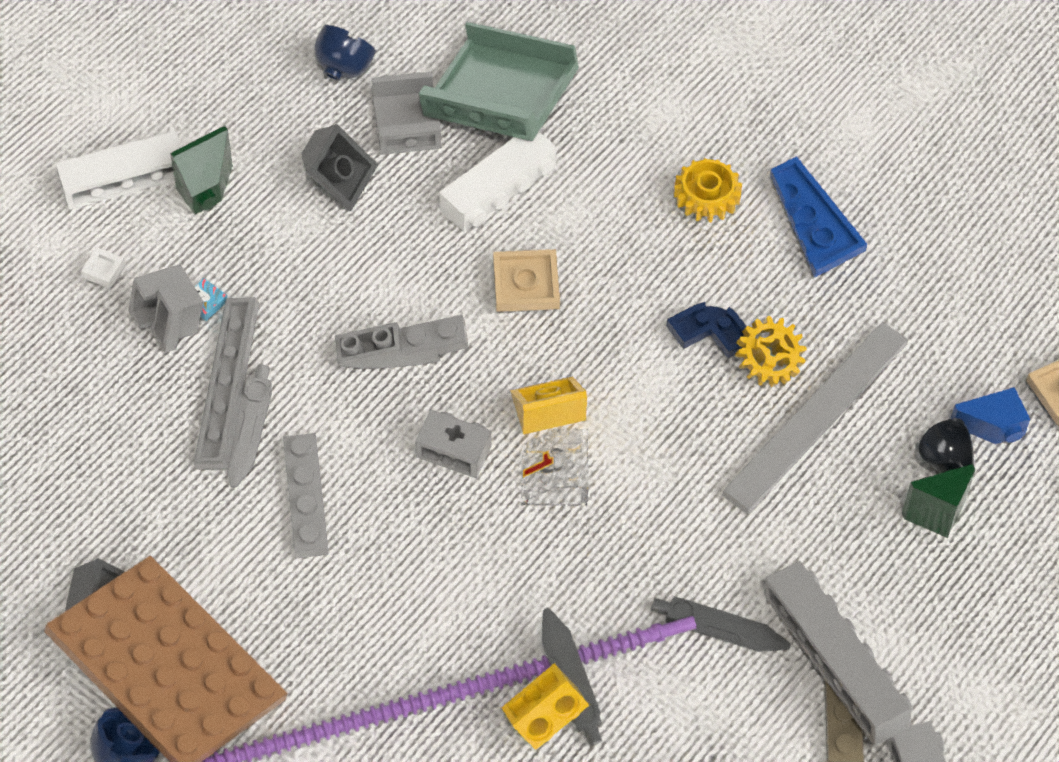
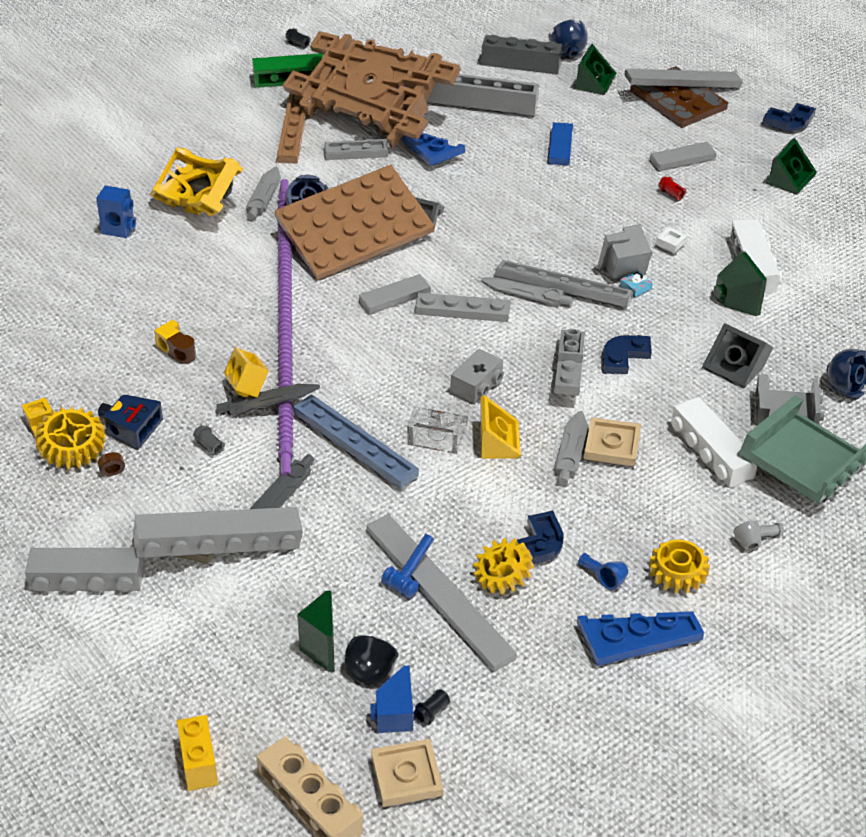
camera: 105 degrees right, 15 degrees down
(299, 585) = (394, 293): none -> light grey tile
(356, 302) = (622, 347): none -> dark blue plate
(541, 325) = (571, 448): none -> light grey piece
(613, 554) = (356, 441): none -> sand blue plate
(634, 132) = (750, 533): none -> light grey bar
(659, 736) = (204, 436): none -> dark grey pin
(739, 252) = (610, 574): none -> blue bar
(821, 451) = (401, 579): none -> blue piece
(980, 385) = (426, 710): none -> black pin

